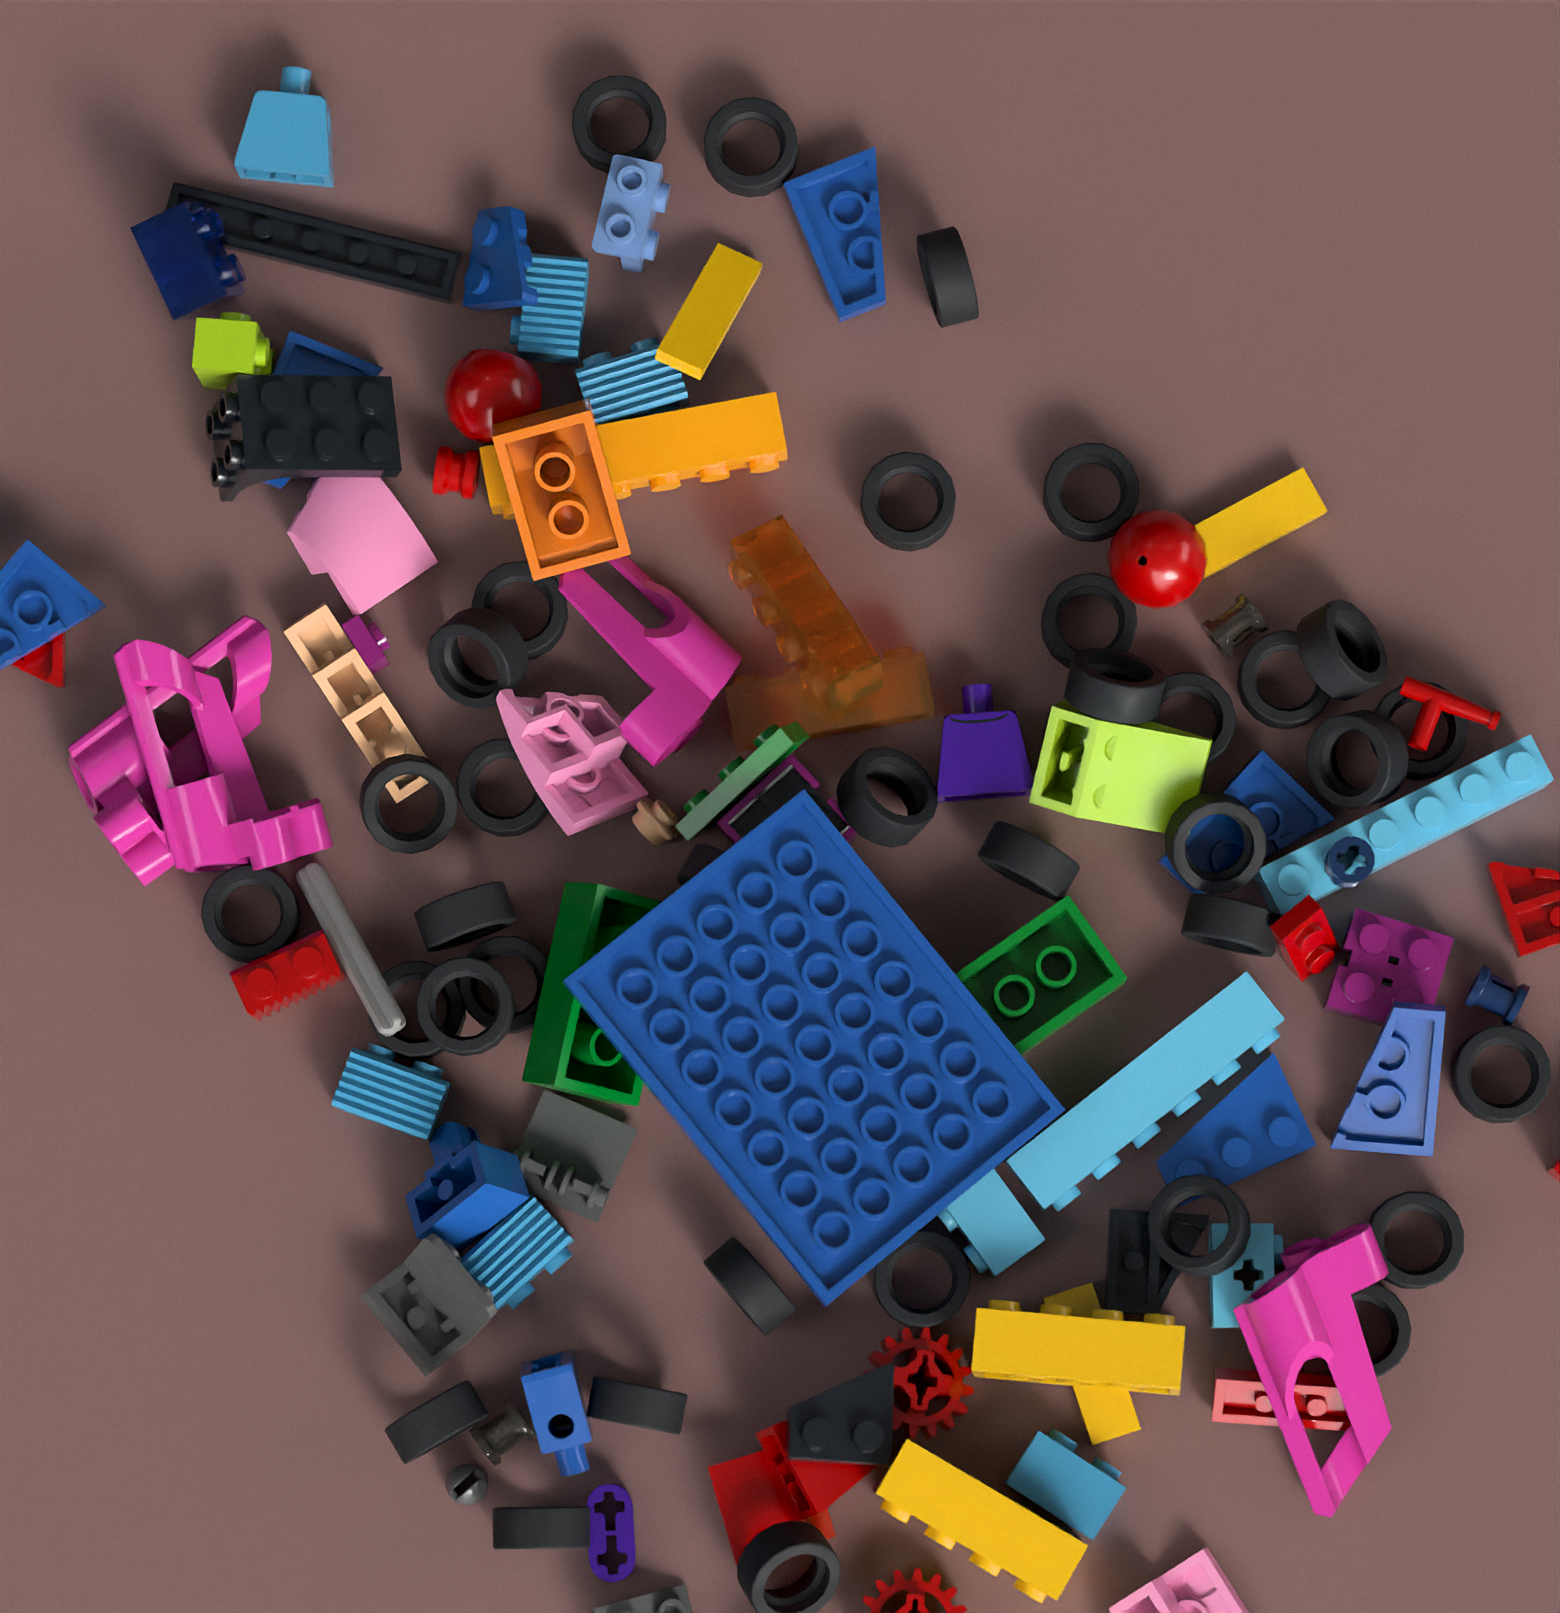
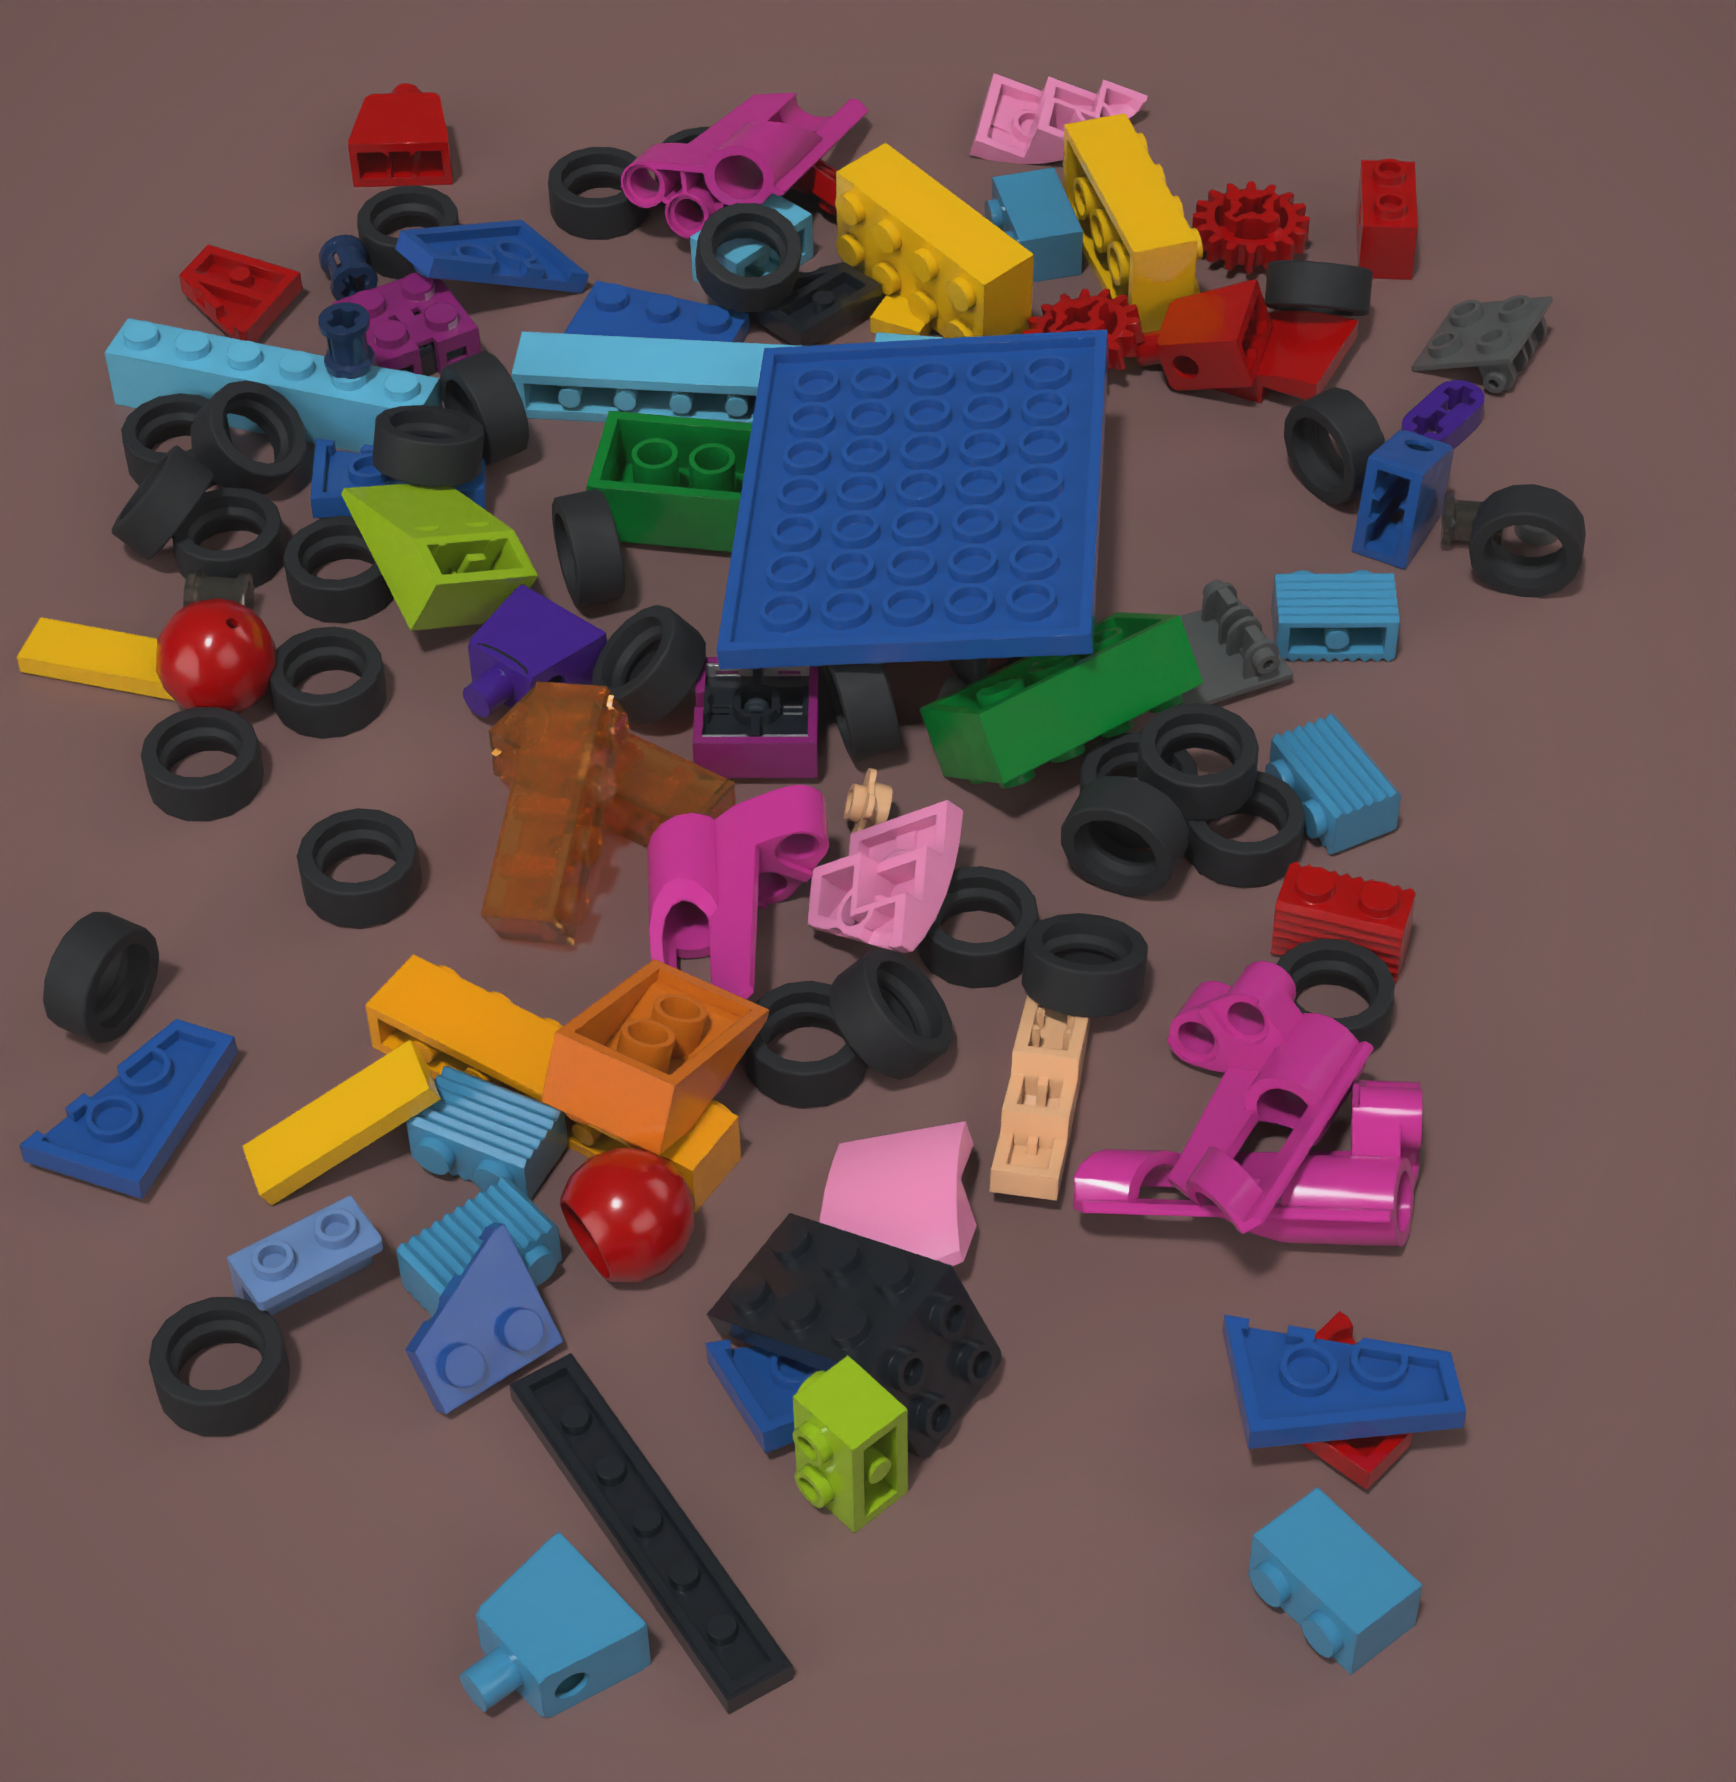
camera: 140 degrees left, 35 degrees down
(189, 259) = (794, 1554): clear blue brick -> none
(350, 949) = (1263, 875): light grey axle -> none
(368, 643) = (984, 1119): magenta plate -> none
(431, 1304) = (1455, 631): dark grey bracket -> none
(456, 472) = (736, 1193): red wheel -> none
(466, 1187) = (1335, 655): blue brick -> none
(541, 1527) = (1525, 410): black tyre -> none
(740, 778) = (756, 749): plate -> none
(748, 109) = (118, 1206): black tyre -> none
(749, 1285) = (1153, 456): black tyre -> none
(845, 1423) = (1174, 311): black wing -> none
(1115, 685) = (394, 574): black tyre -> none
(1305, 939) = (433, 348): red plate -> none
(1438, 700) = (142, 423): red piece -> none

